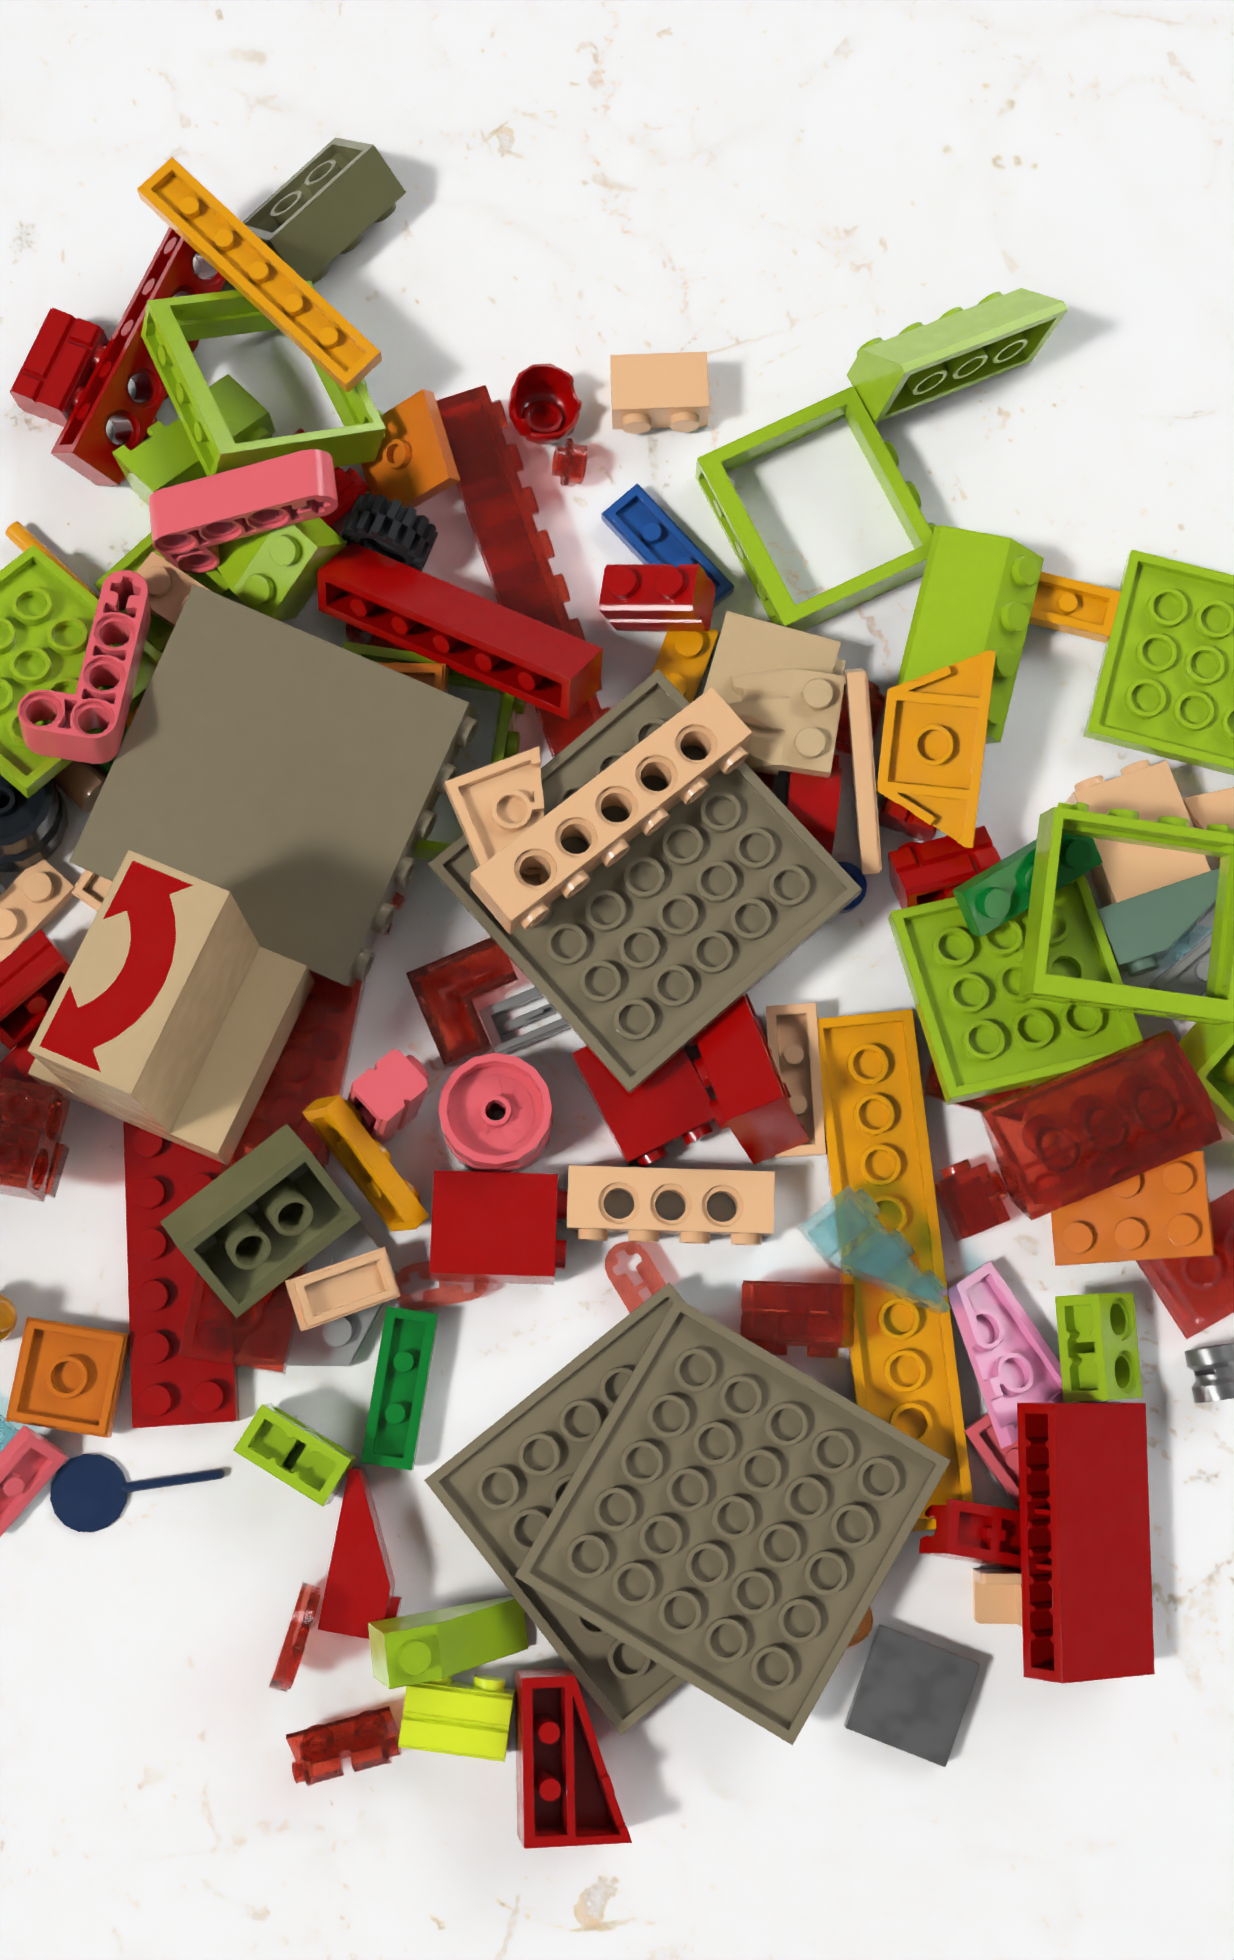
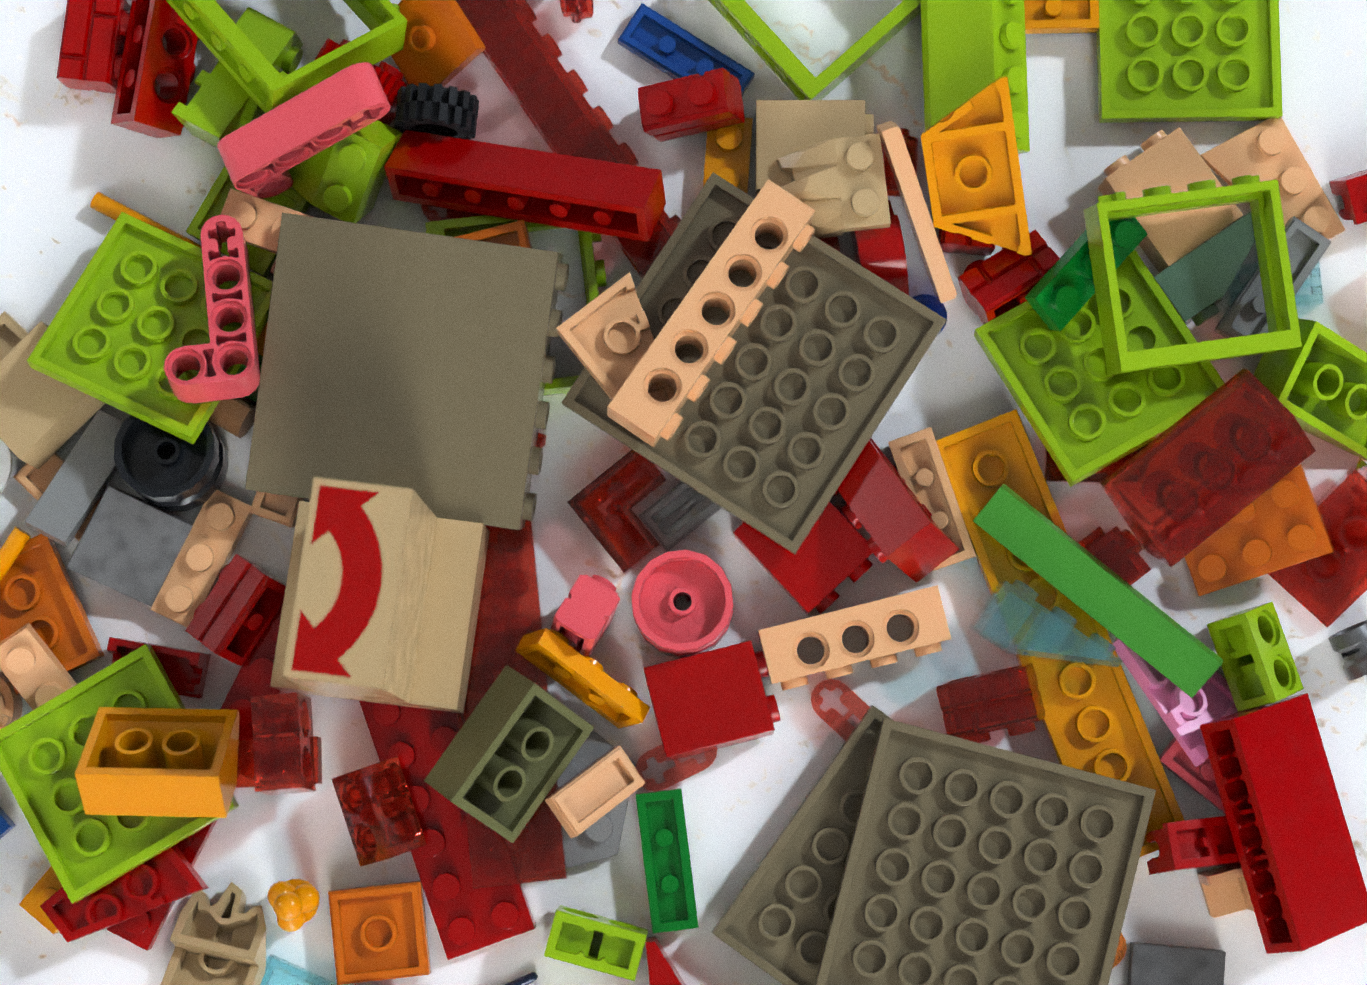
camera: 10 degrees left, 5 degrees up
(106, 1244) = (379, 811): none -> clear red brick
(947, 1226) = (1098, 590): none -> bright green tile

